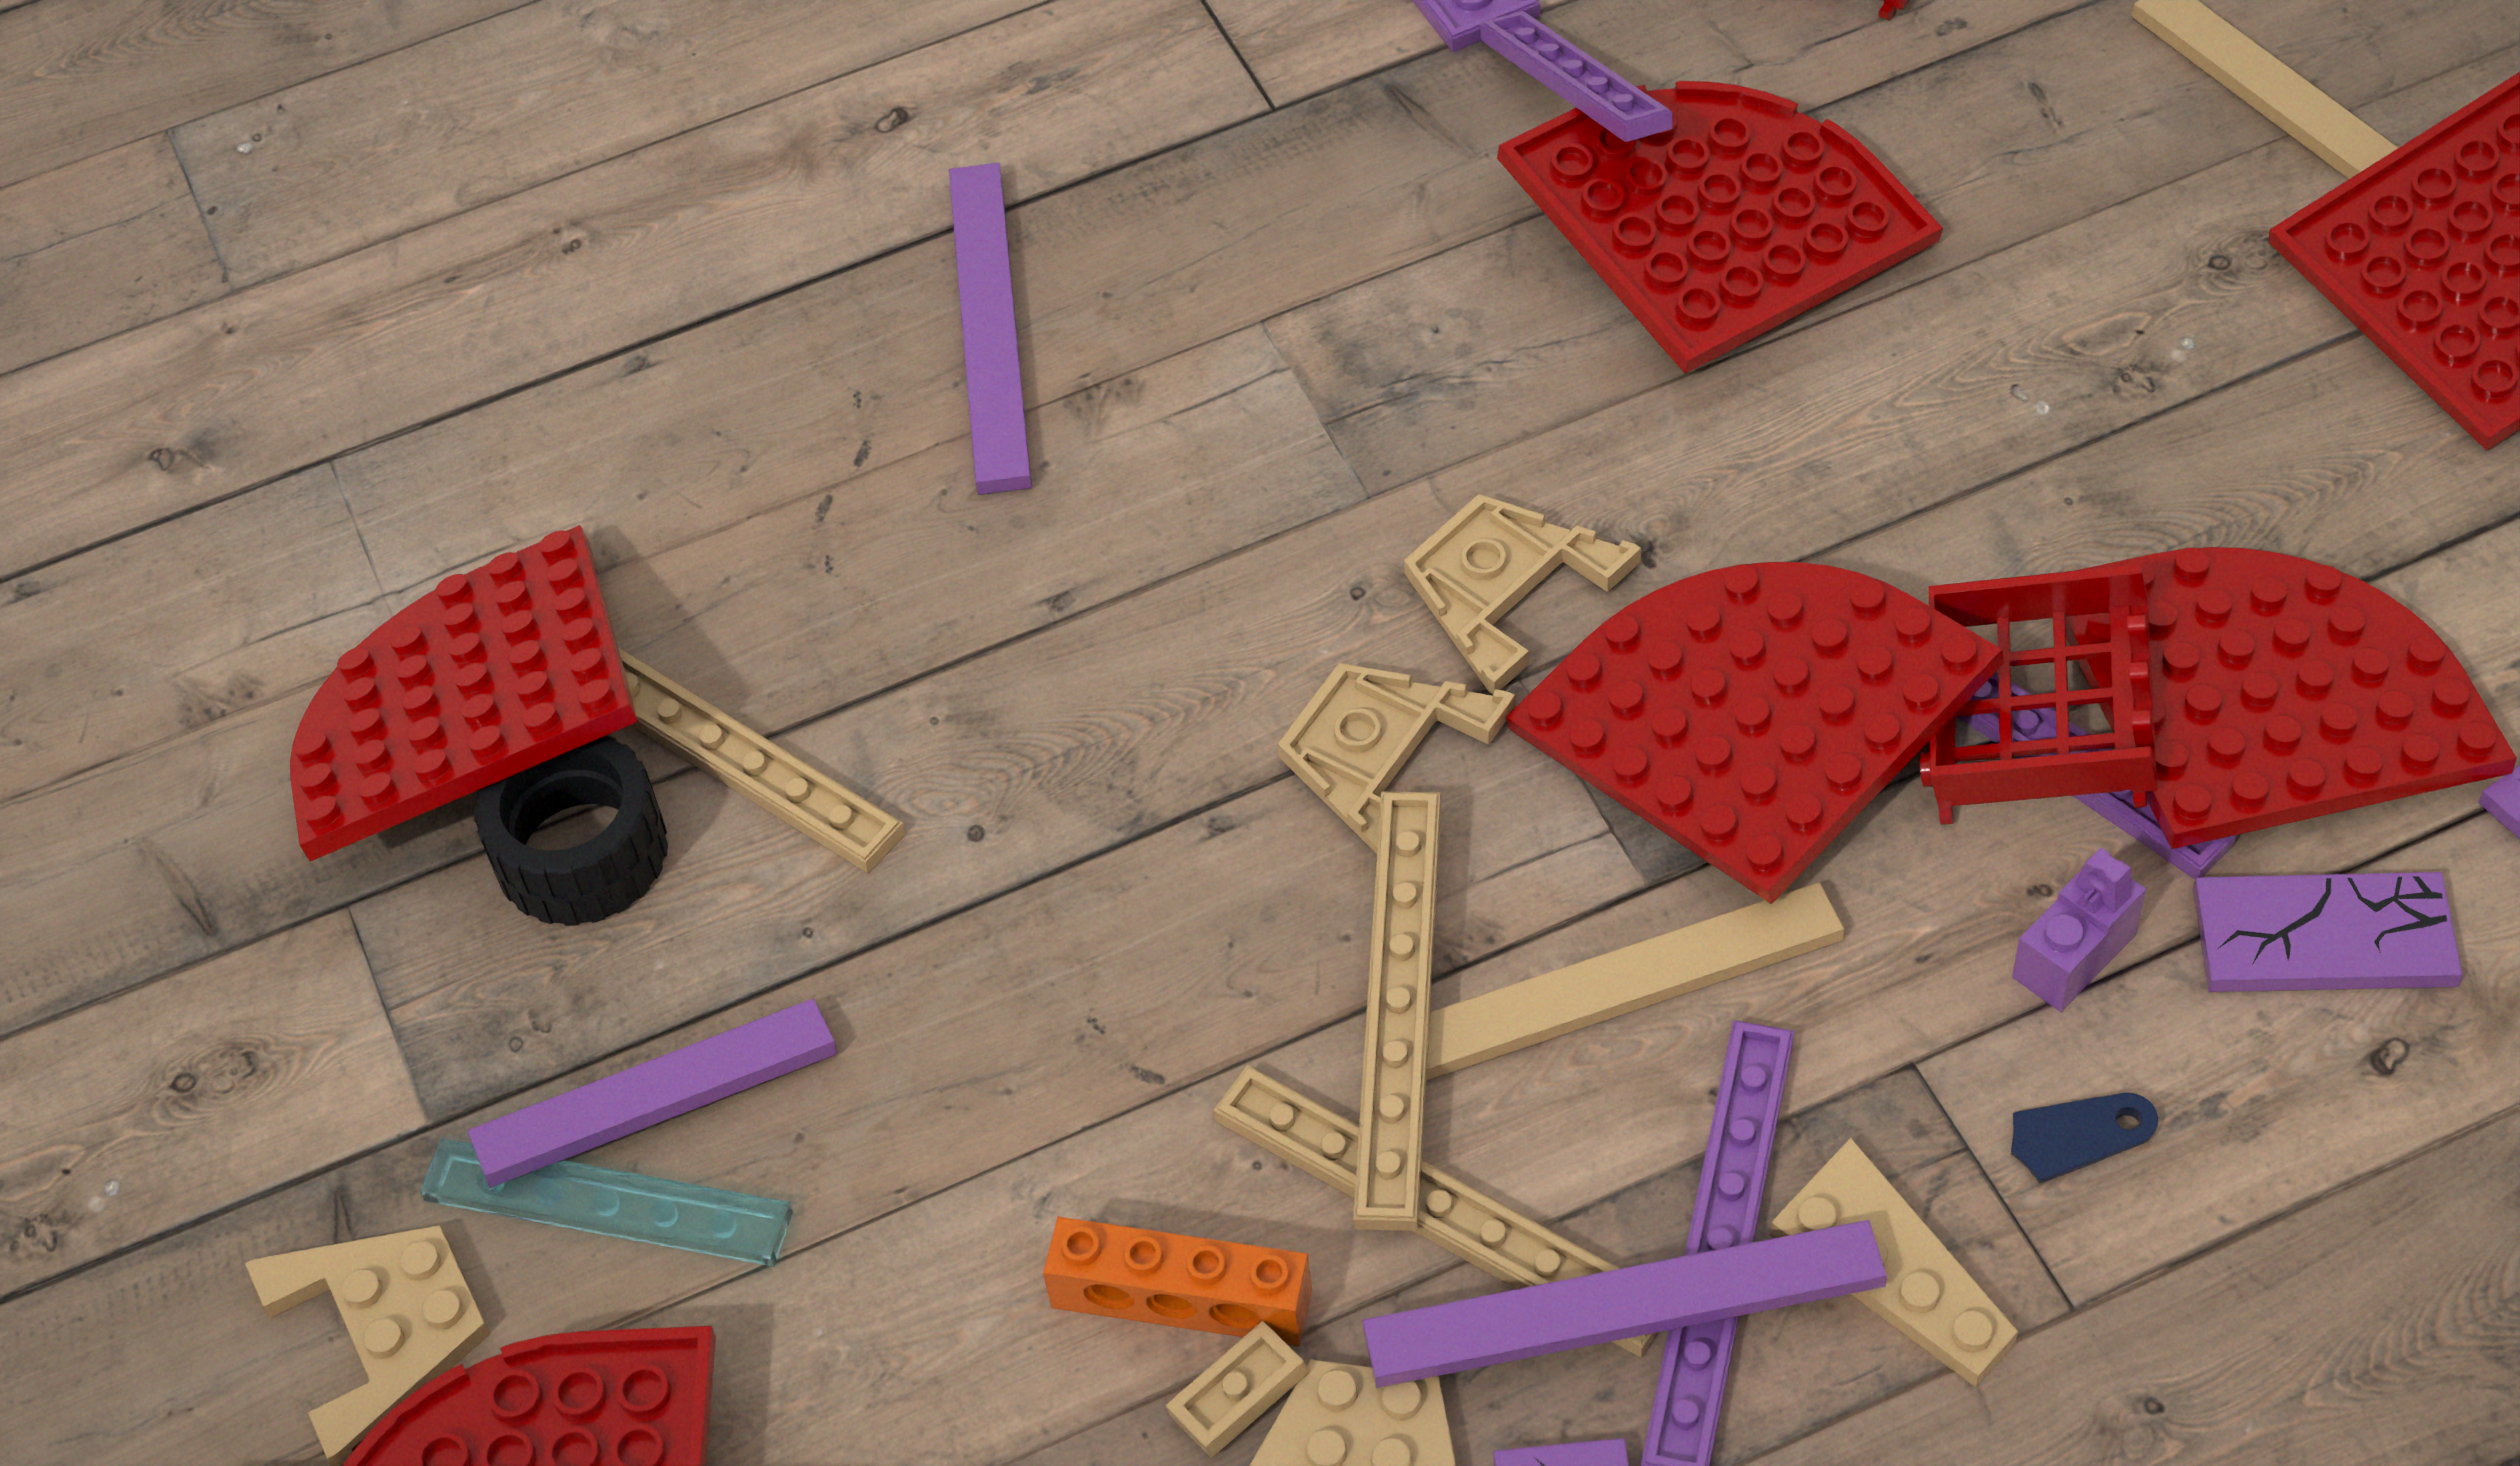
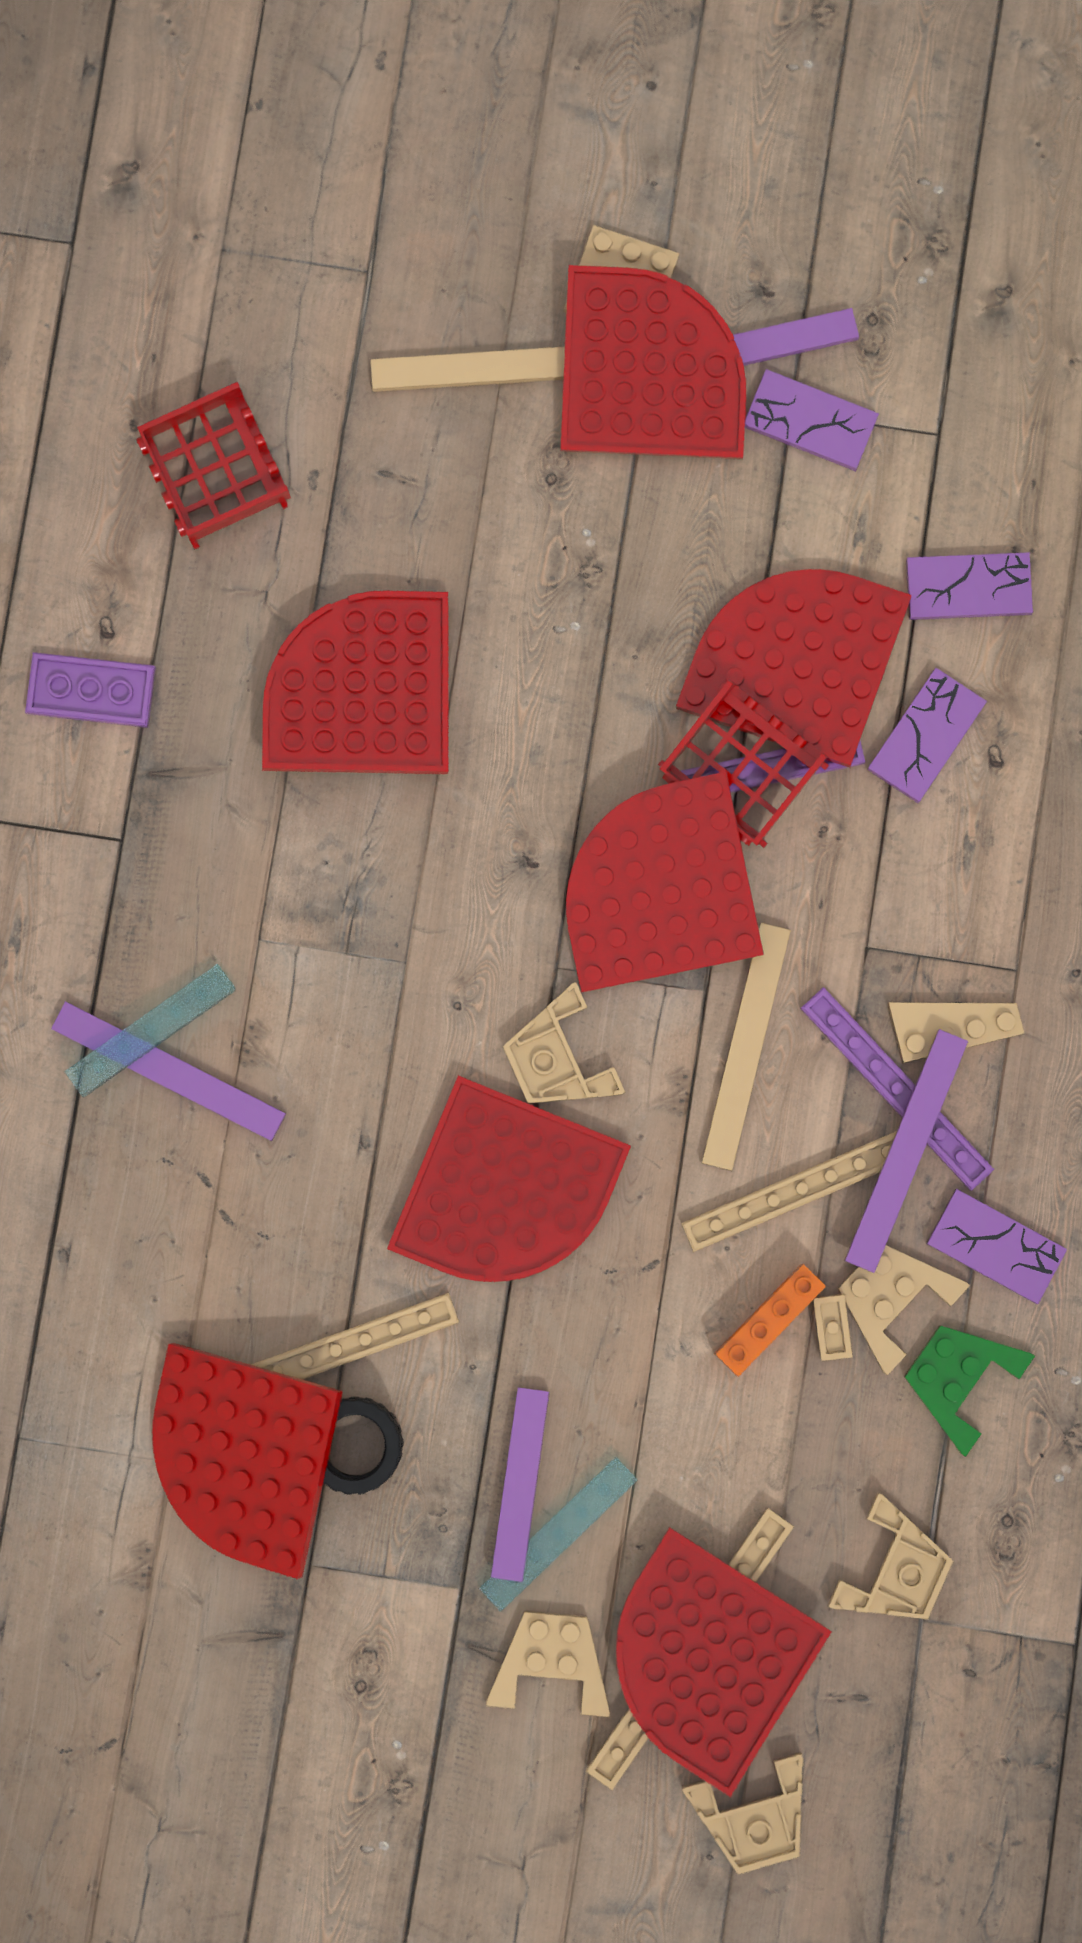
camera: 60 degrees left, 30 degrees up
(1031, 264) = (150, 1031): none -> clear light blue tile
(1123, 802) = (505, 1188): none -> red plate
(1398, 1013) = (702, 1143): tan tile -> none
(1489, 562) = (490, 939): tan wing -> none
(1576, 76) = (236, 696): medium lavender tile -> none
(2079, 1133) = (946, 909): dark blue piece -> none
(2080, 931) = (865, 839): medium lavender hinge -> none

